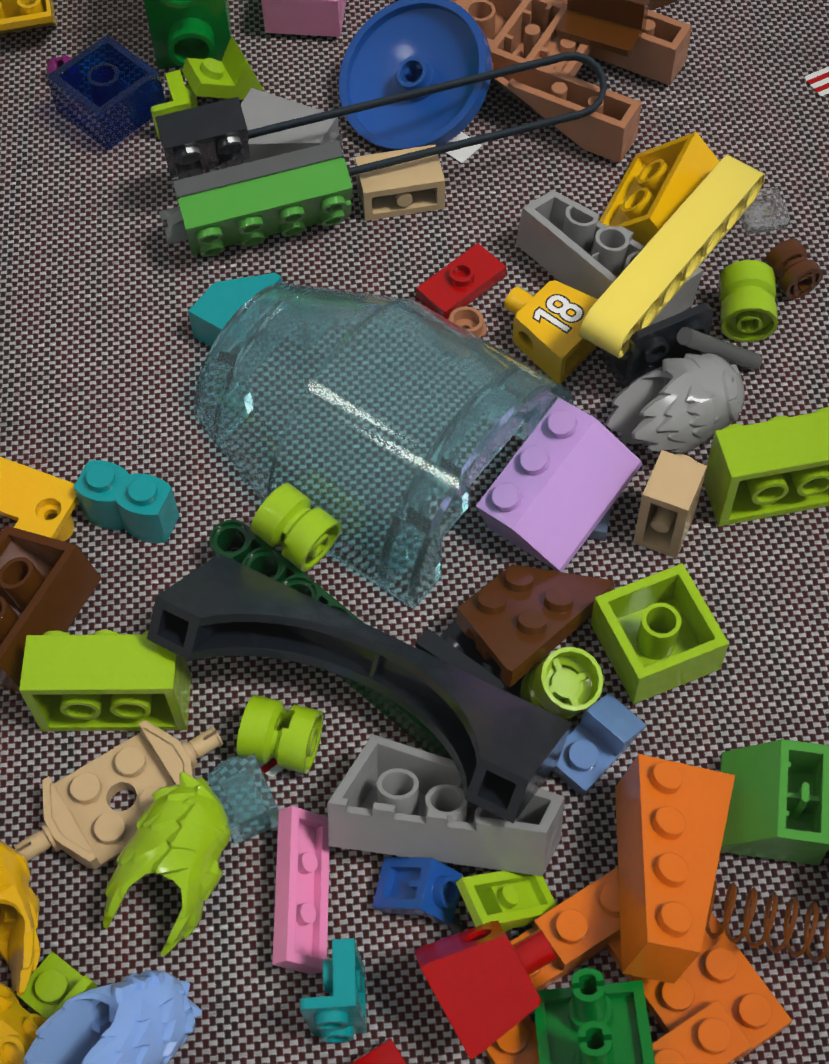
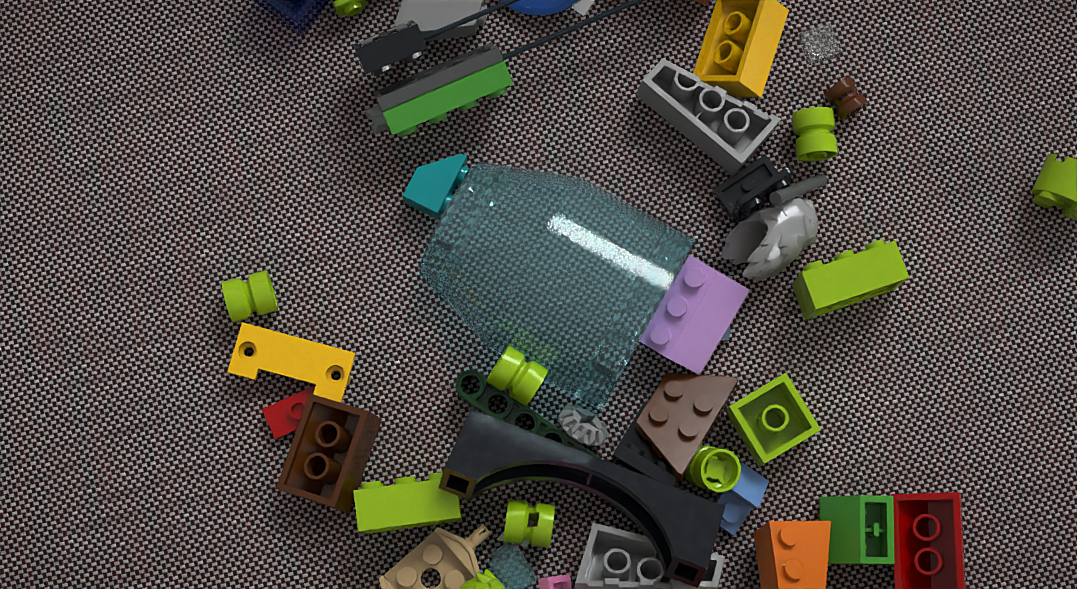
camera: 15 degrees left, 20 degrees up
(127, 501) = (379, 357): teal brick -> none
(381, 611) = (583, 425): none -> light grey gear
(401, 188) = (545, 56): tan brick -> none
(461, 281) = (599, 133): red plate -> none
(469, 319) = (613, 171): nougat plate -> none
(549, 327) = (675, 170): yellow torso -> none
(669, 503) = (773, 319): tan brick -> none
(671, 256) = (760, 115): light yellow beam -> none

